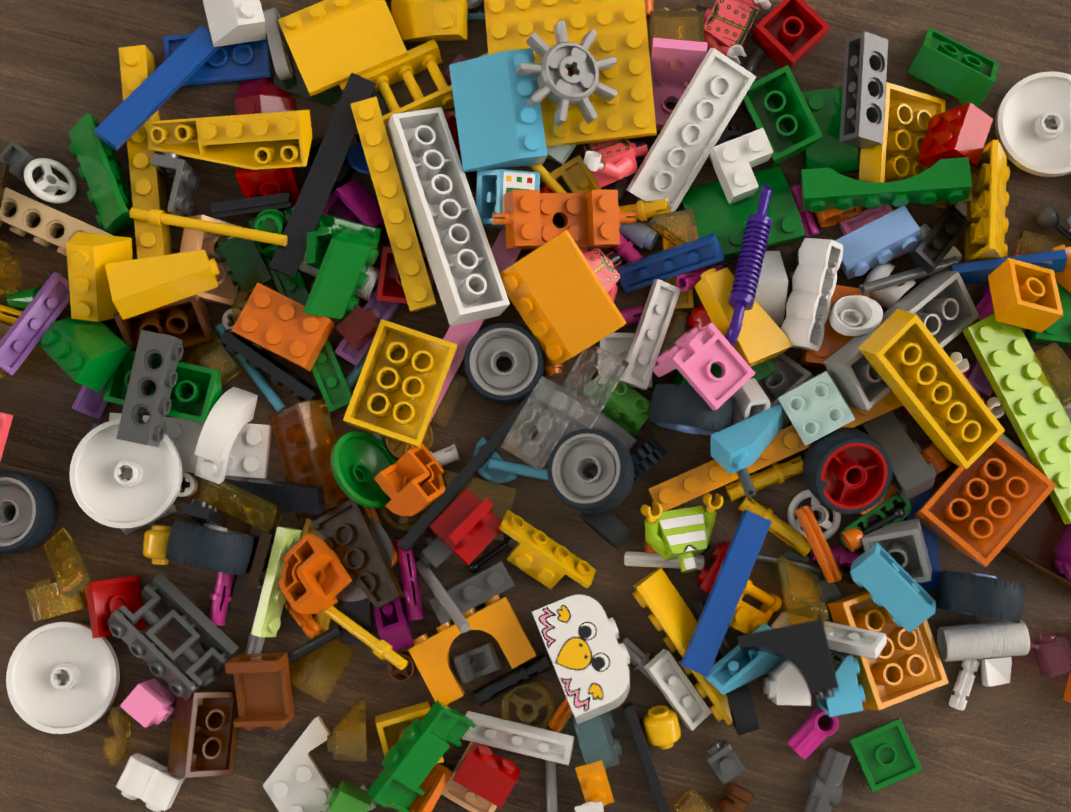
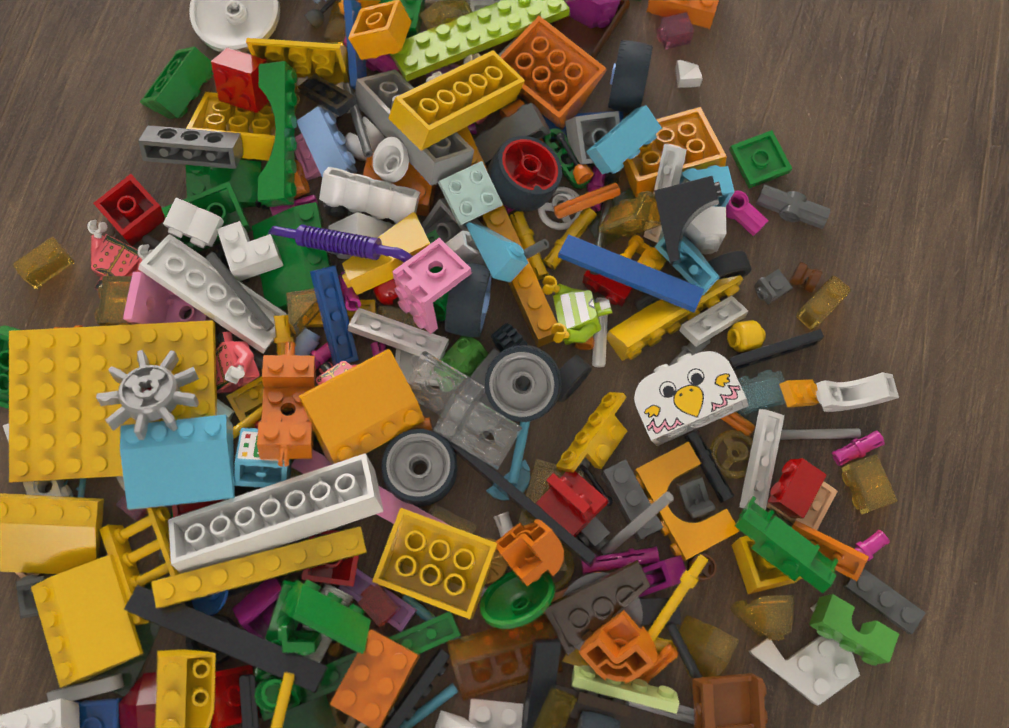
camera: 90 degrees left, 10 degrees down
(693, 159) = (240, 291): none -> dark grey piece
(769, 101) = (193, 222): none -> white brick
(964, 684) = (699, 98): white axle -> none
(977, 641) = (665, 81): white piece -> none

